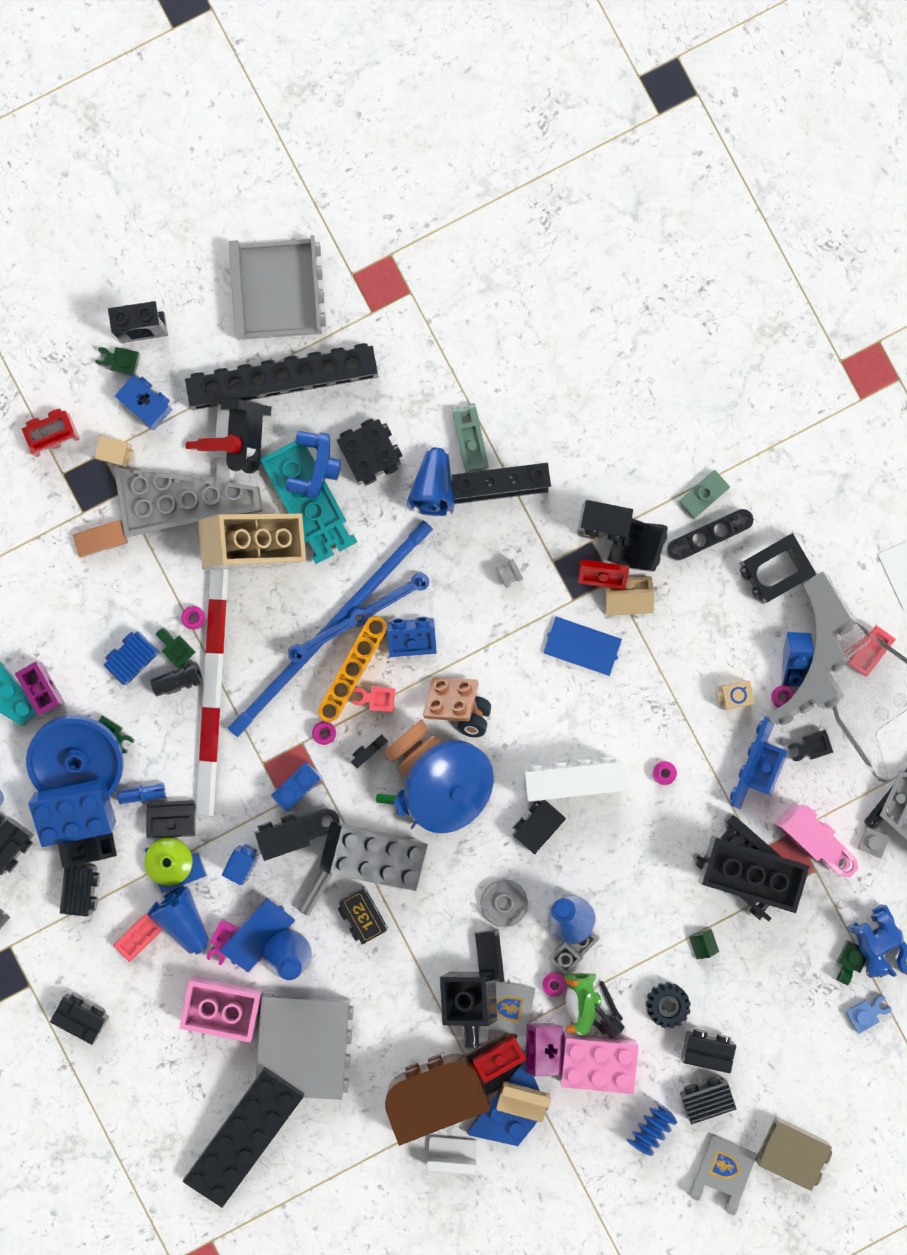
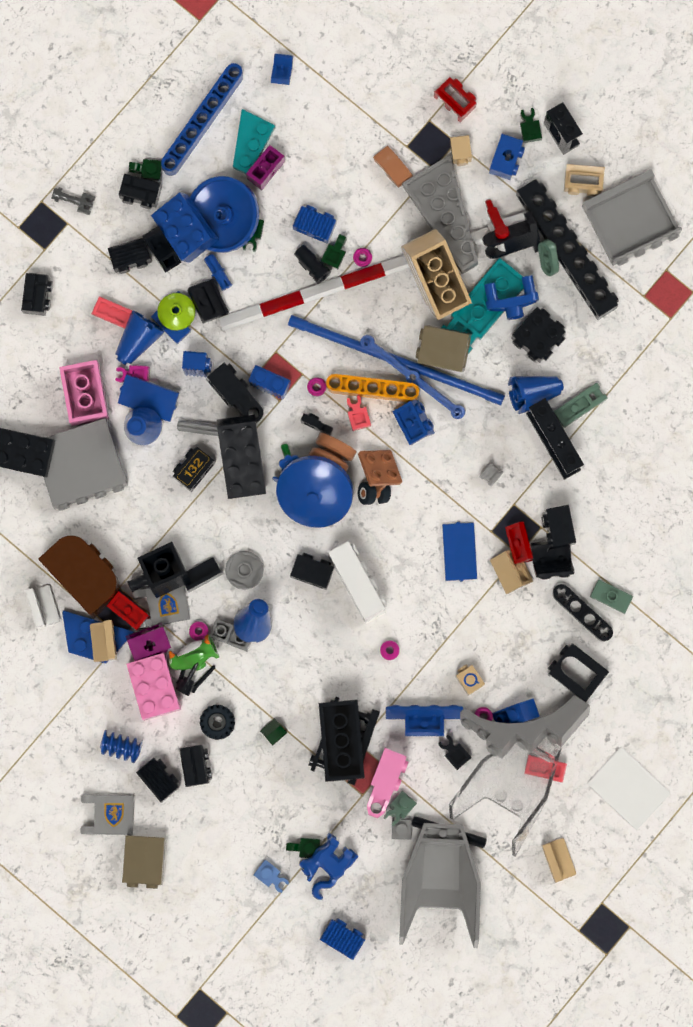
camera: 75 degrees right, 5 degrees down
(208, 324) = (584, 180): none -> tan window
(283, 402) = (548, 257): none -> sand green plate
(340, 568) = (443, 348): none -> dark tan brick
(849, 832) = (400, 807): none -> sand green plate

